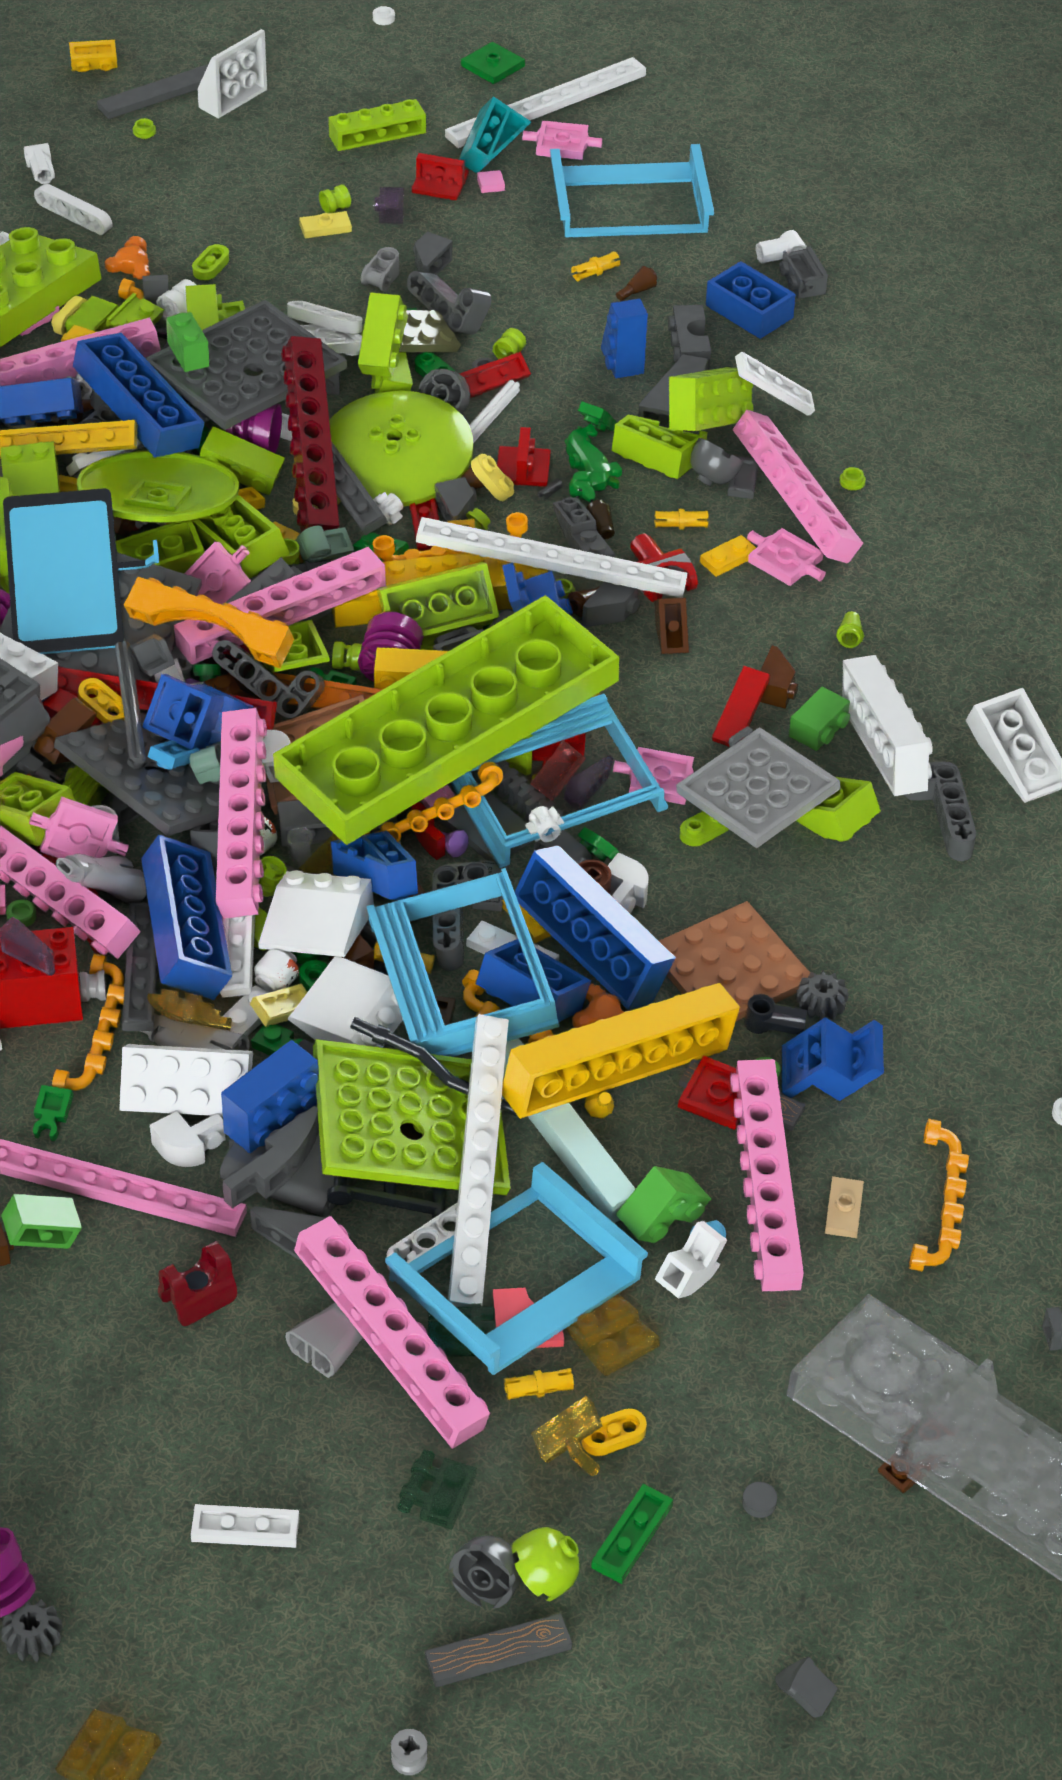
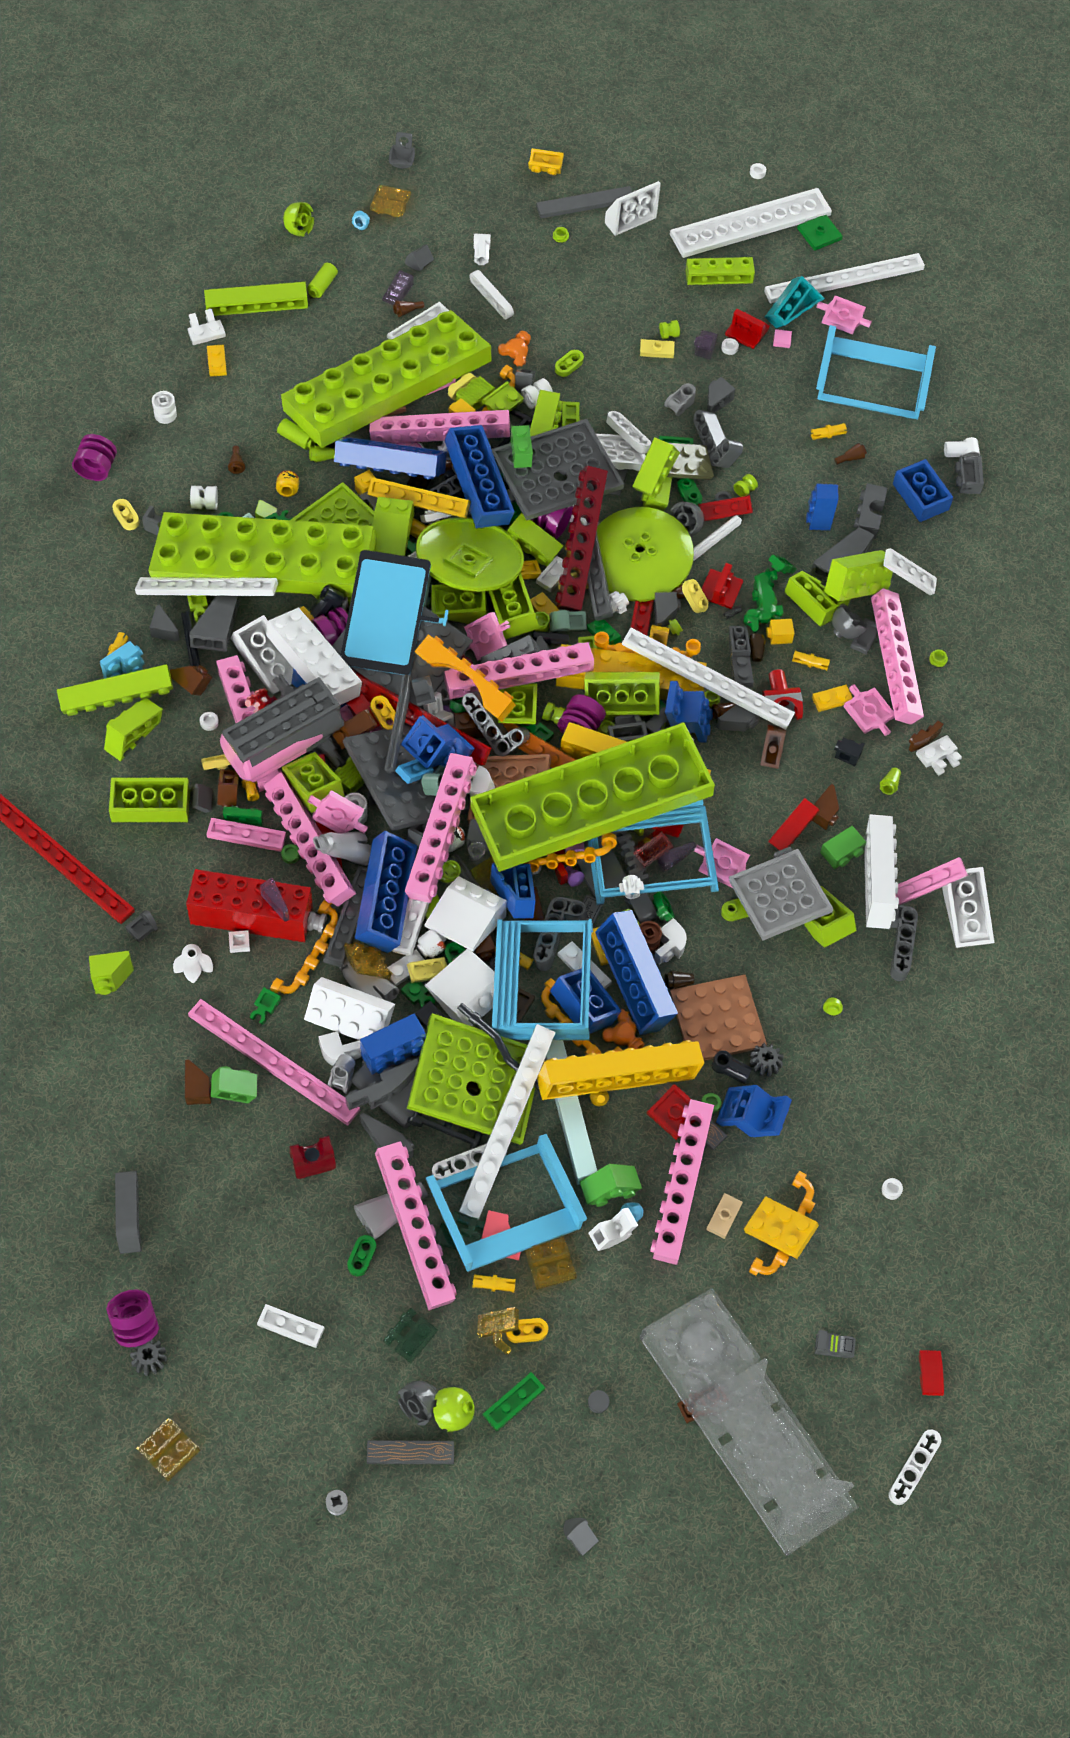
camera: 15 degrees right, 15 degrees up
(204, 1170) = (342, 1073): none -> light grey piece
(280, 498) = (550, 576): none -> white plate
(320, 1402) = (361, 1256): none -> green plate
(394, 69) = (749, 222): none -> white plate
(423, 203) = (730, 346): none -> white tile
(626, 494) = (780, 631): none -> yellow brick
(660, 926) = (678, 979): none -> dark brown cone
(778, 607) = (848, 751): none -> black brick
(874, 568) = (923, 738): none -> reddish brown slope
(887, 909) = (833, 1006): none -> lime plate
(902, 586) = (938, 750): none -> white plate
(934, 1195) = (781, 1227): none -> yellow plate
(964, 717) = (931, 880): none -> bright pink plate

